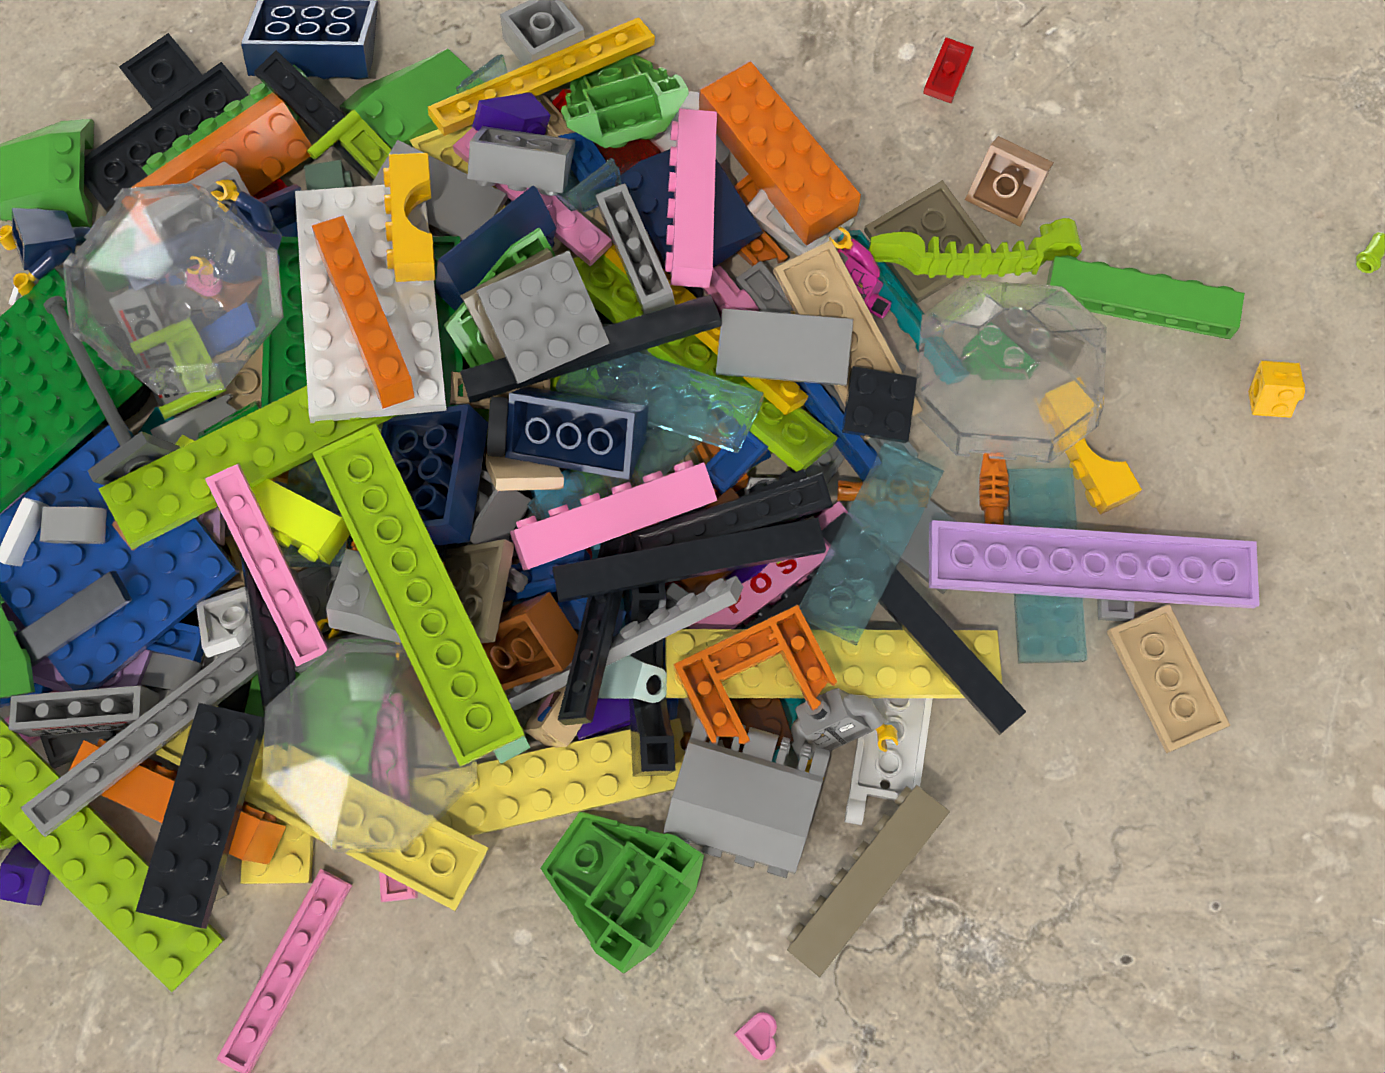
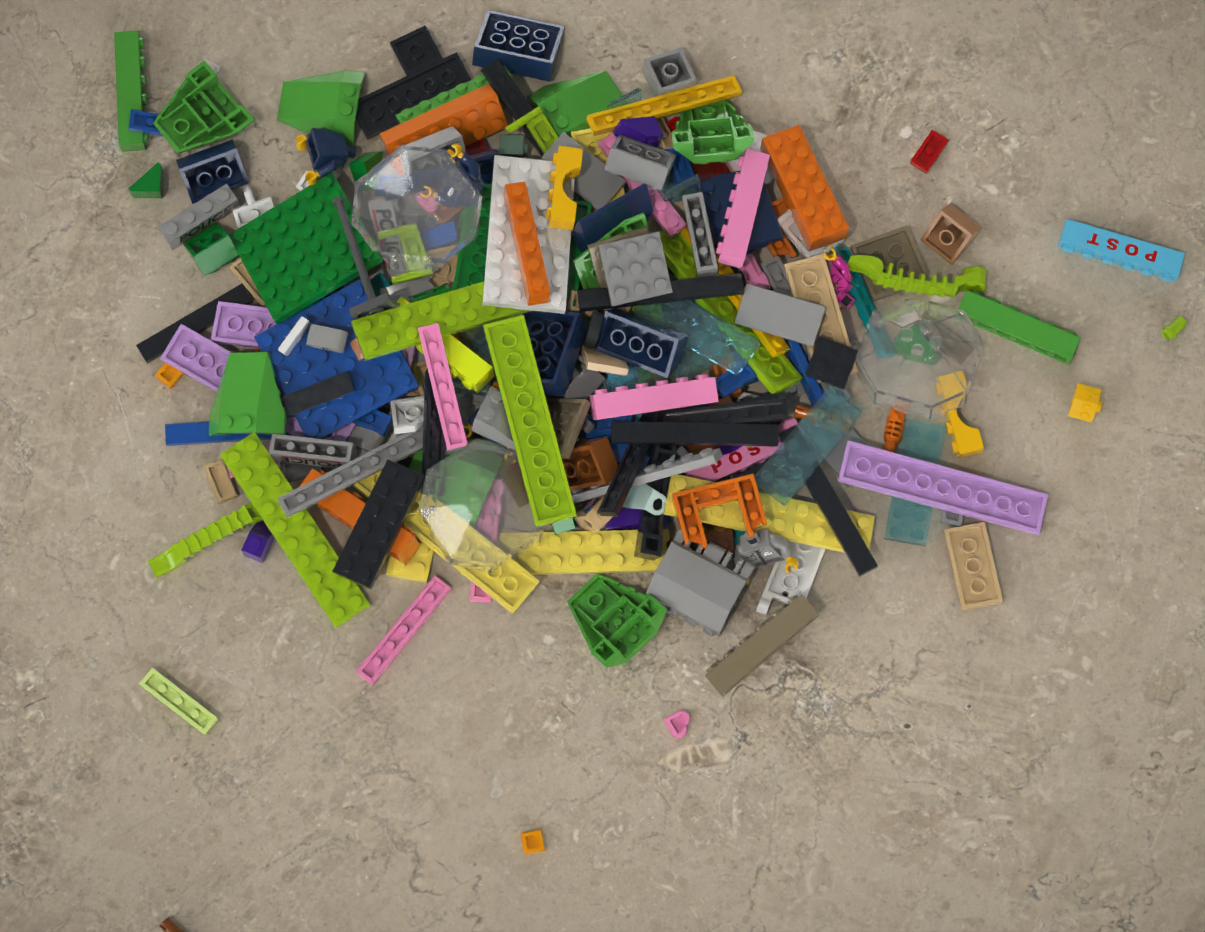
camera: 10 degrees right, 0 degrees up
(1266, 155) = (1121, 250): none -> medium azure brick

